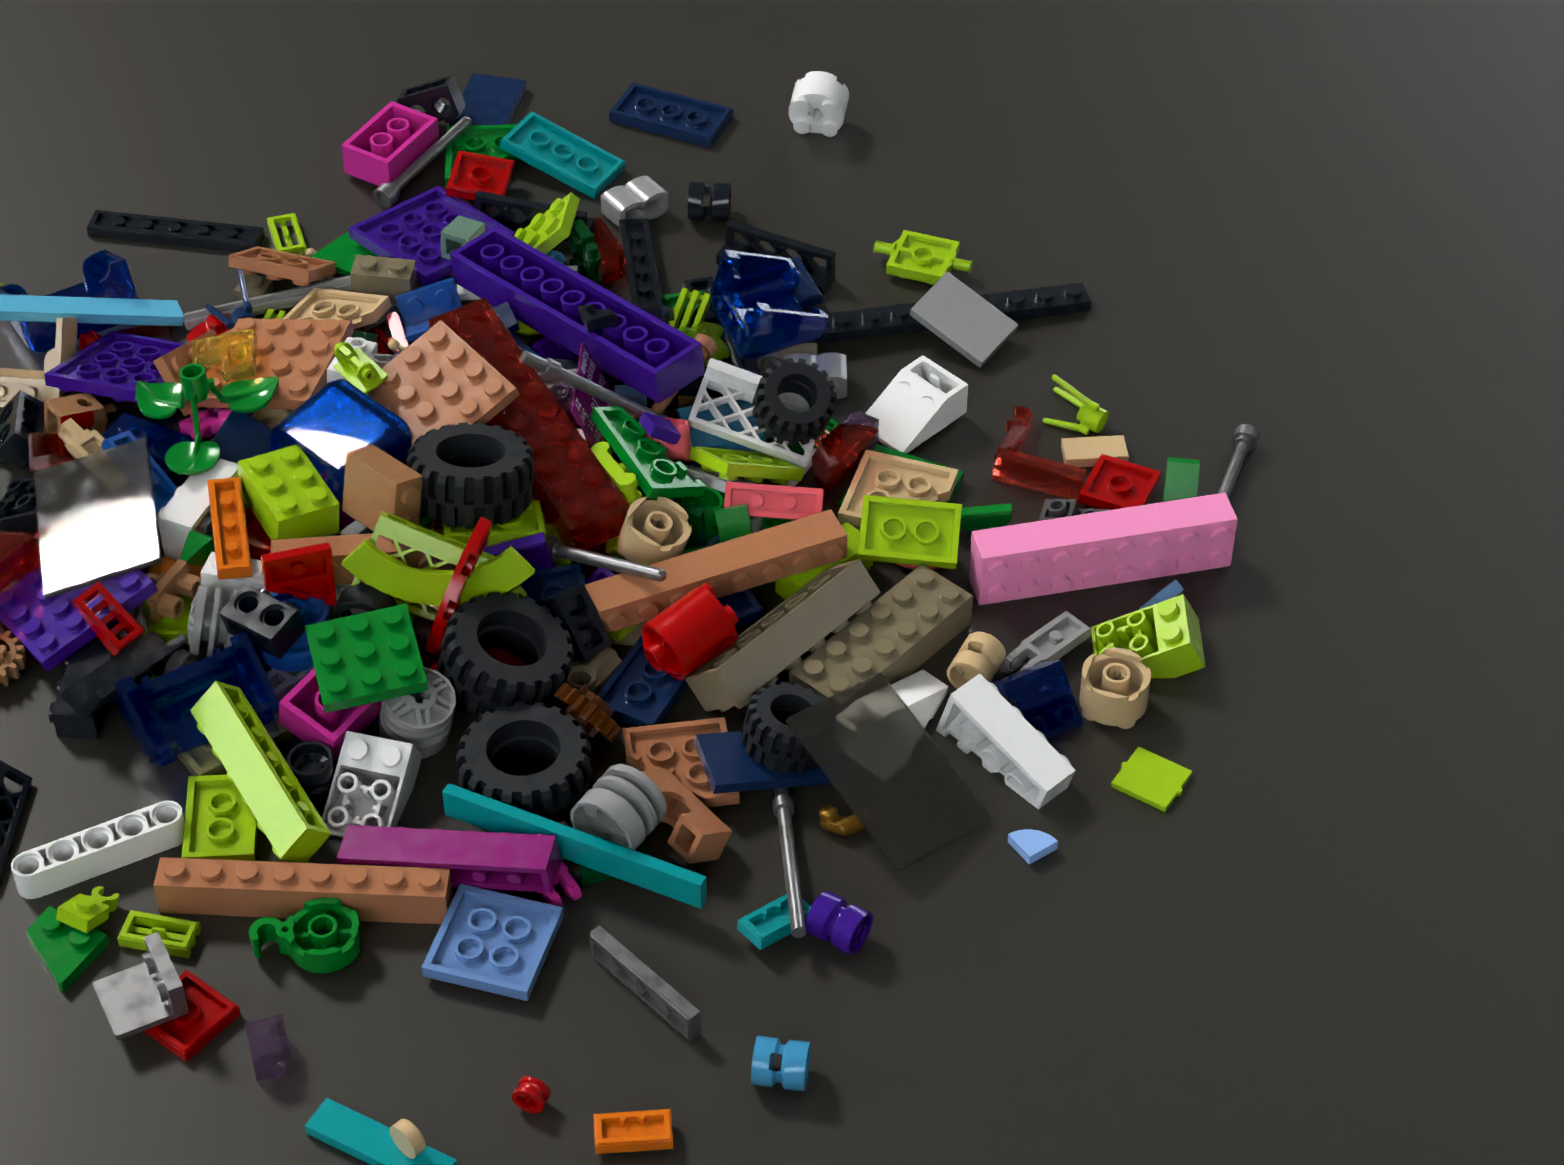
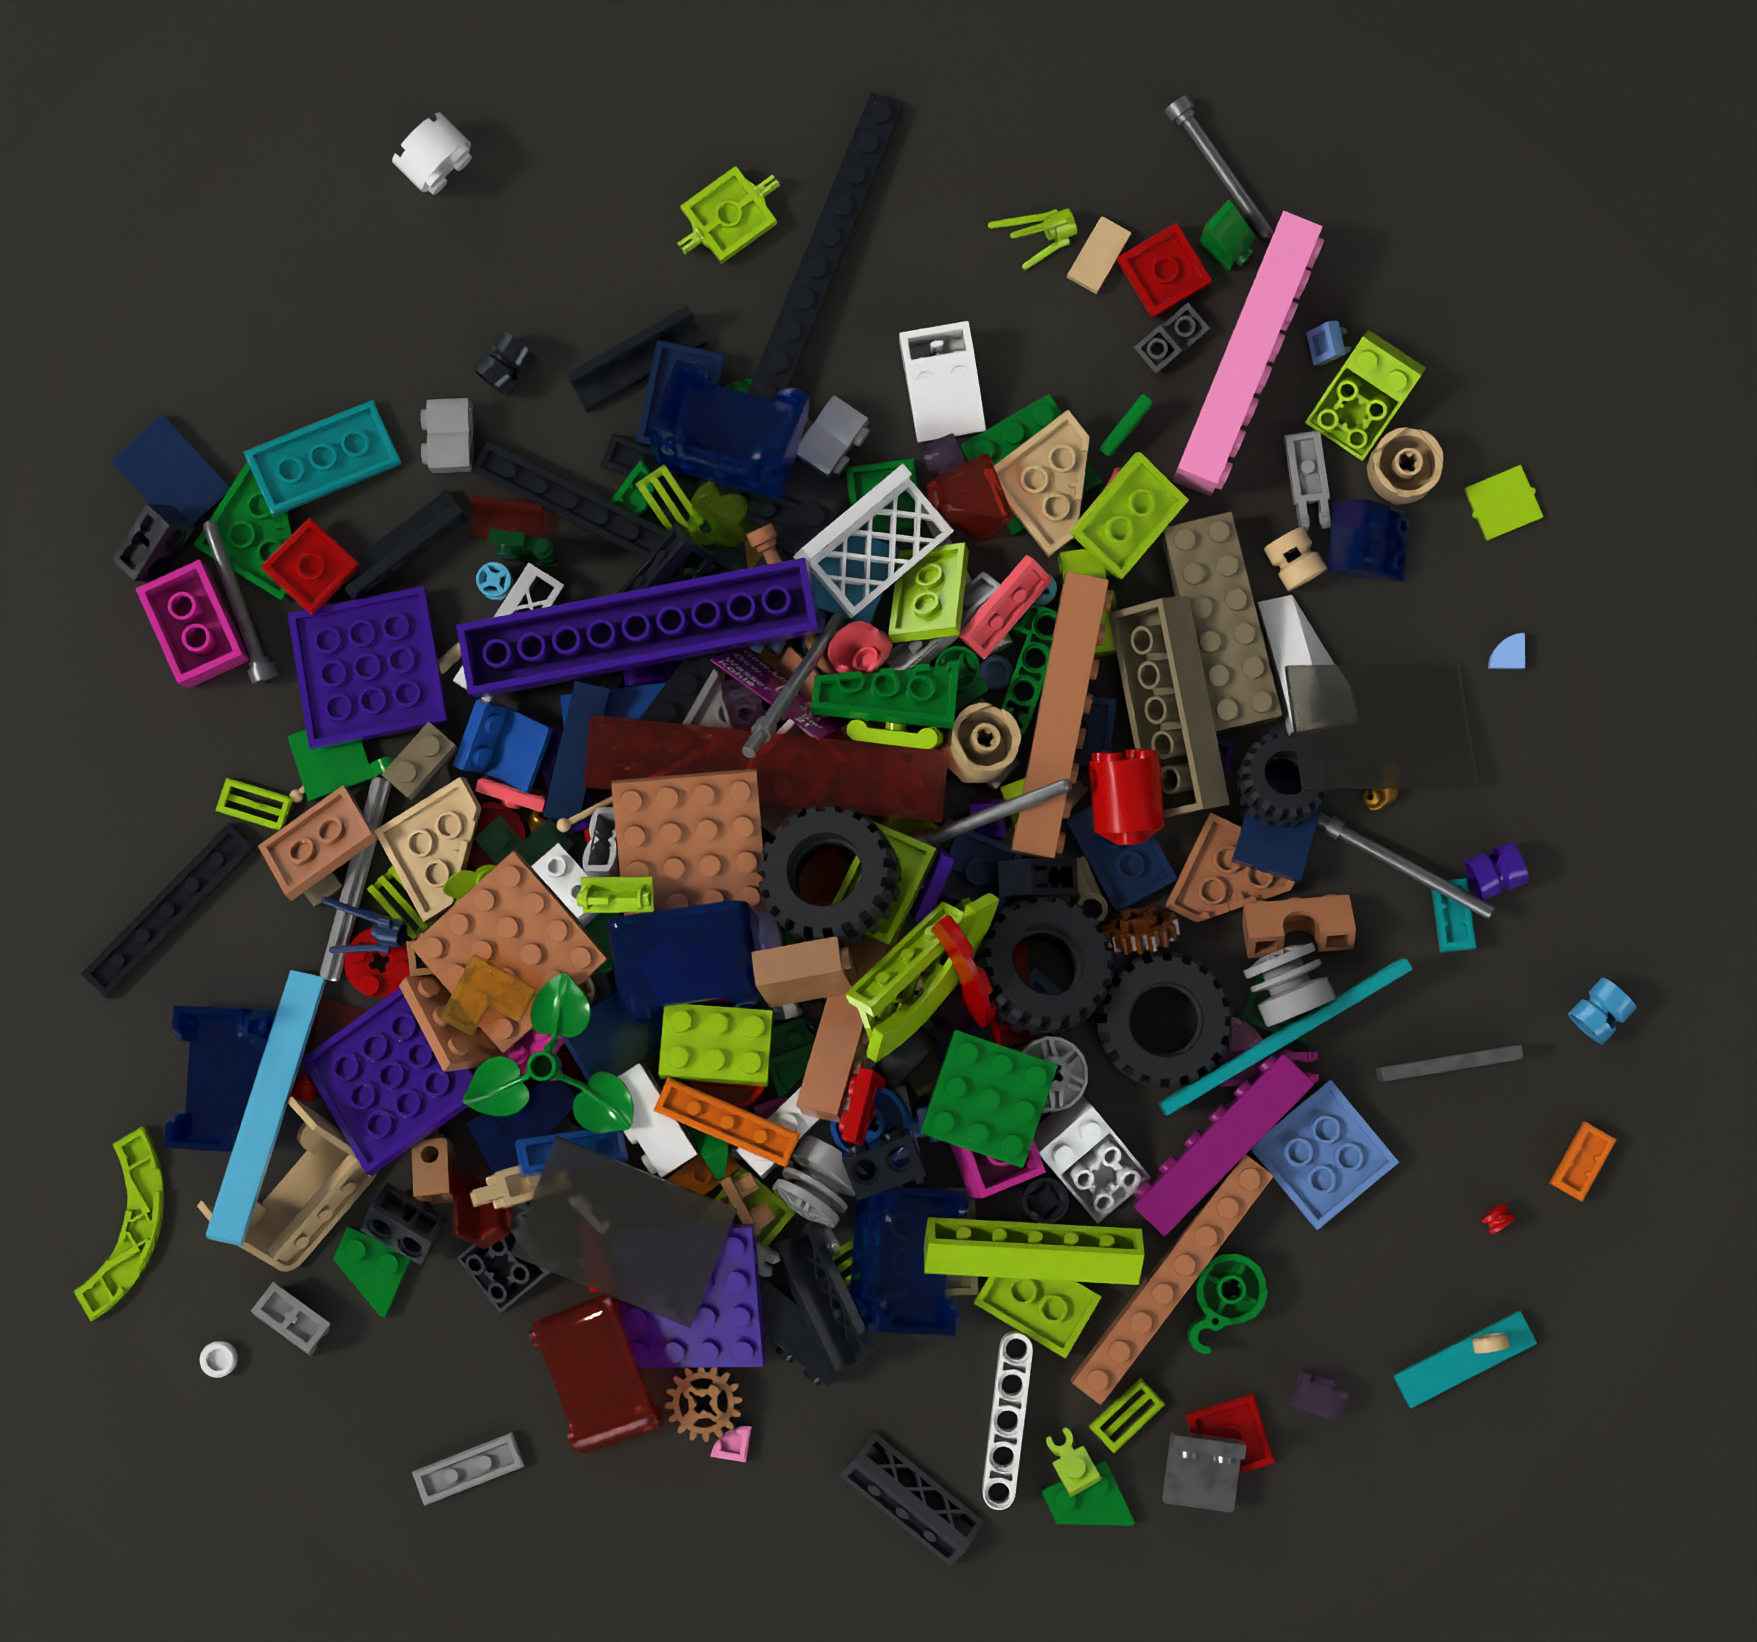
camera: 50 degrees left, 40 degrees up
(99, 626) = (790, 1283): red slope -> none
(459, 233) = (423, 653): sand green brick -> none
(551, 227) = (464, 570): lime plate -> none
(596, 318) = (692, 628): black tile -> none
(659, 428) = (866, 657): dark purple tile -> none
(671, 115) = (320, 301): dark blue tile -> none
(733, 522) = (1001, 657): green tile -> none
(798, 379) = (931, 508): black tyre -> none
(963, 319) = (857, 248): light grey tile -> none
(1005, 741) = (1405, 601): white wedge -> none
(1032, 471) = (1086, 341): clear red hinge -> none

